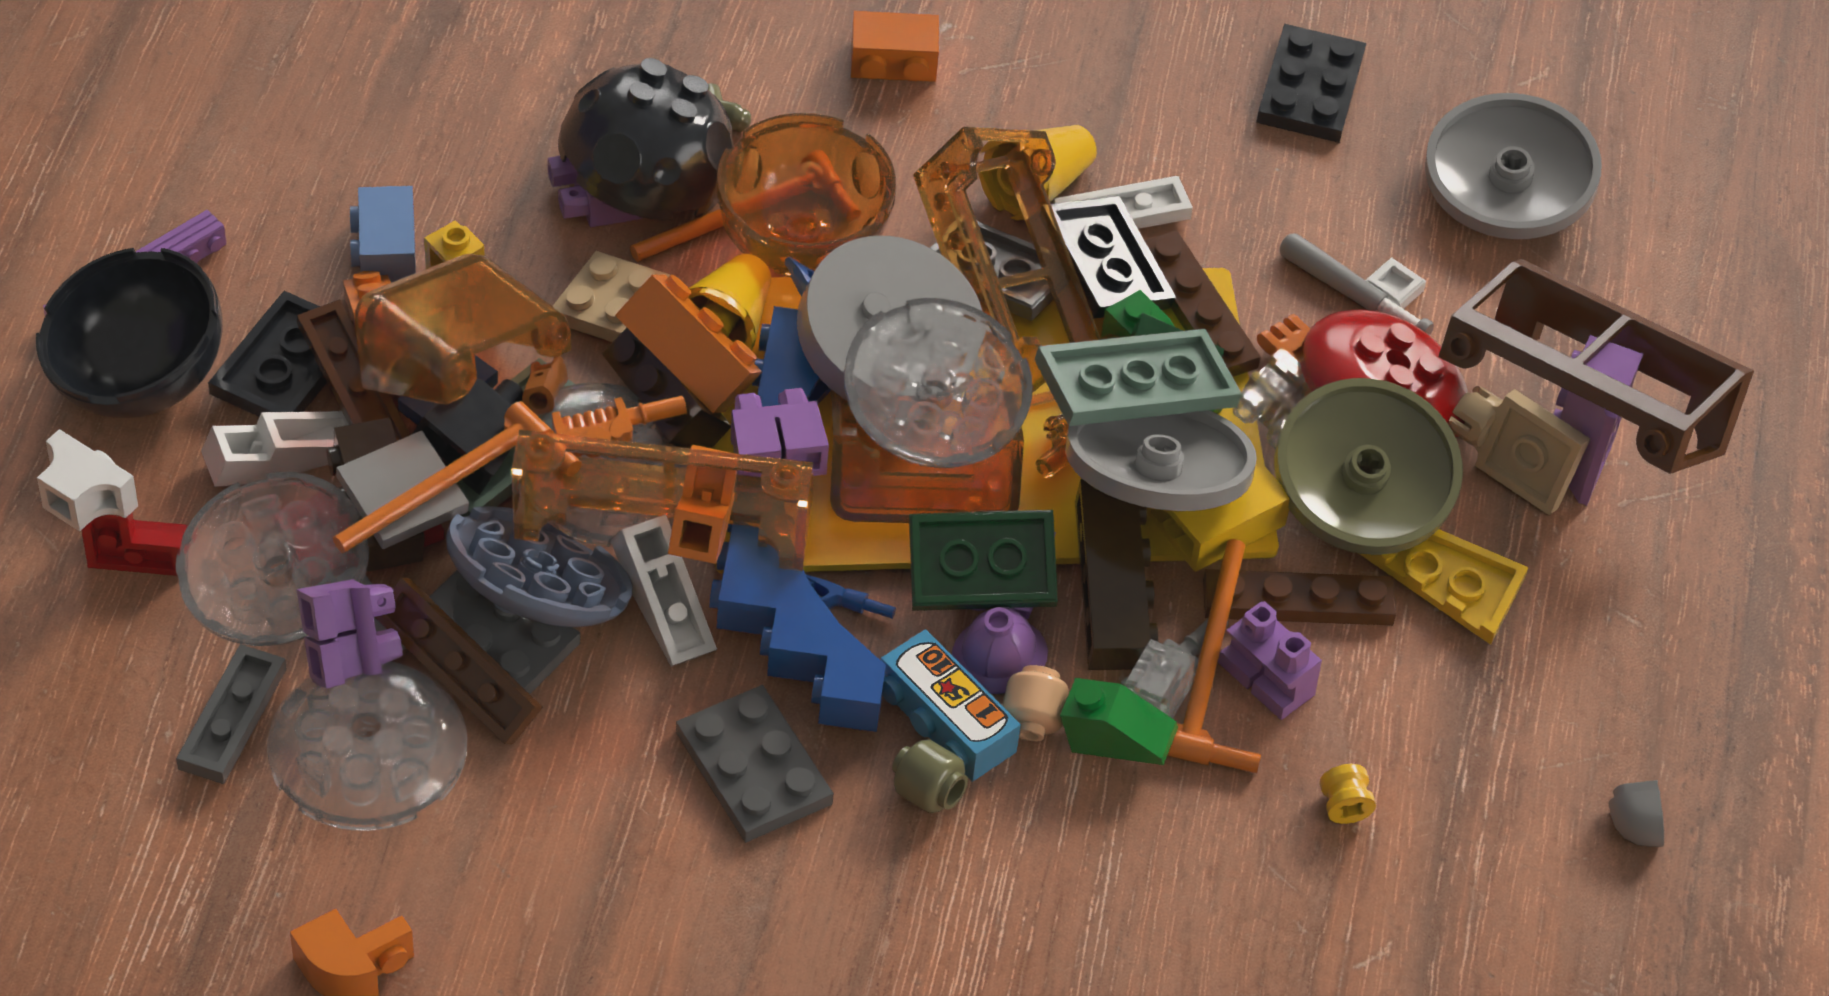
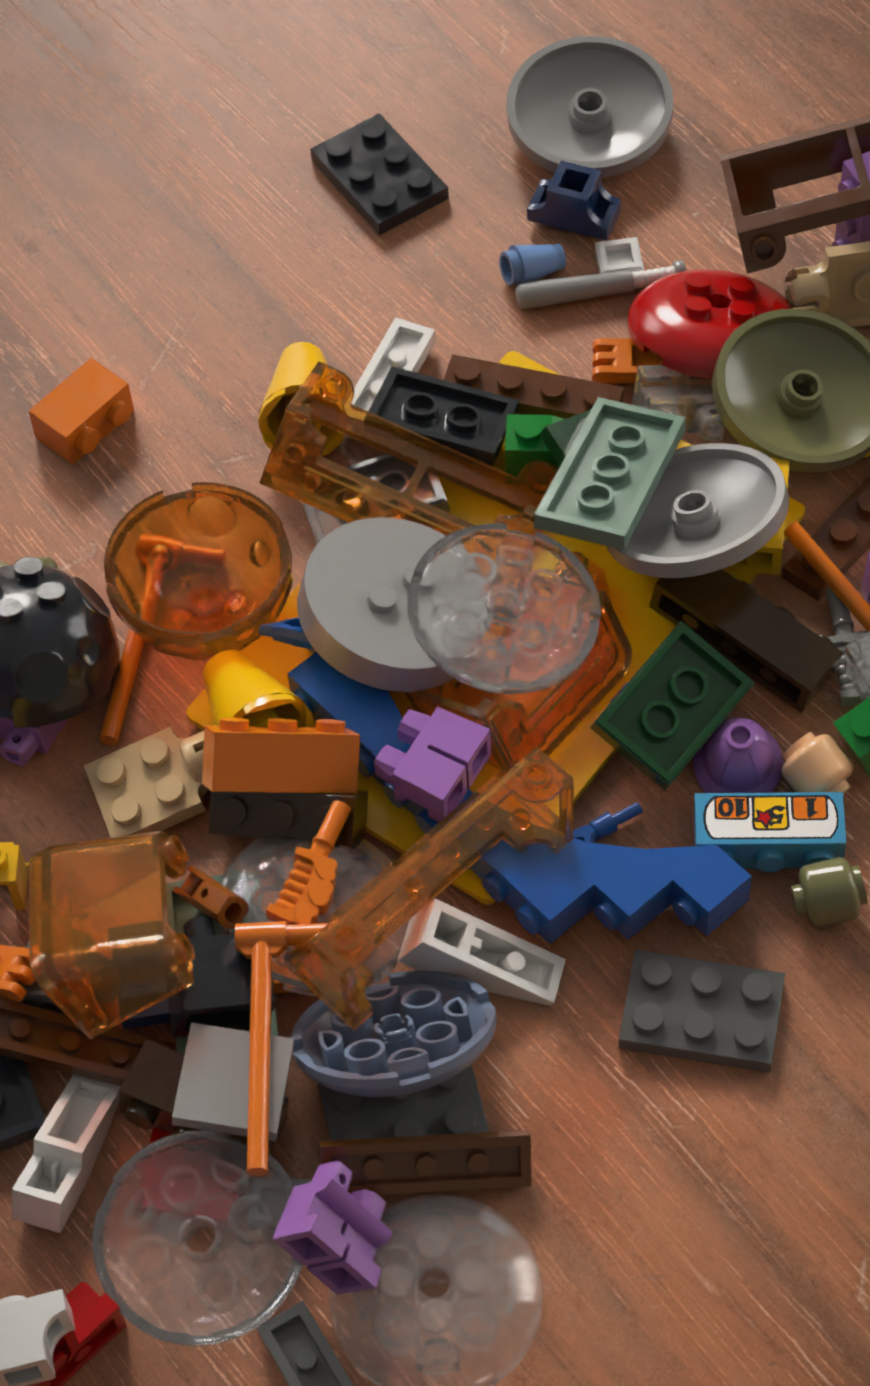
camera: 40 degrees left, 5 degrees up
(703, 512) = (478, 870): orange brick -> none
(1326, 229) = (530, 262): none -> medium blue cone
(1411, 218) = (575, 202): none -> dark blue brick

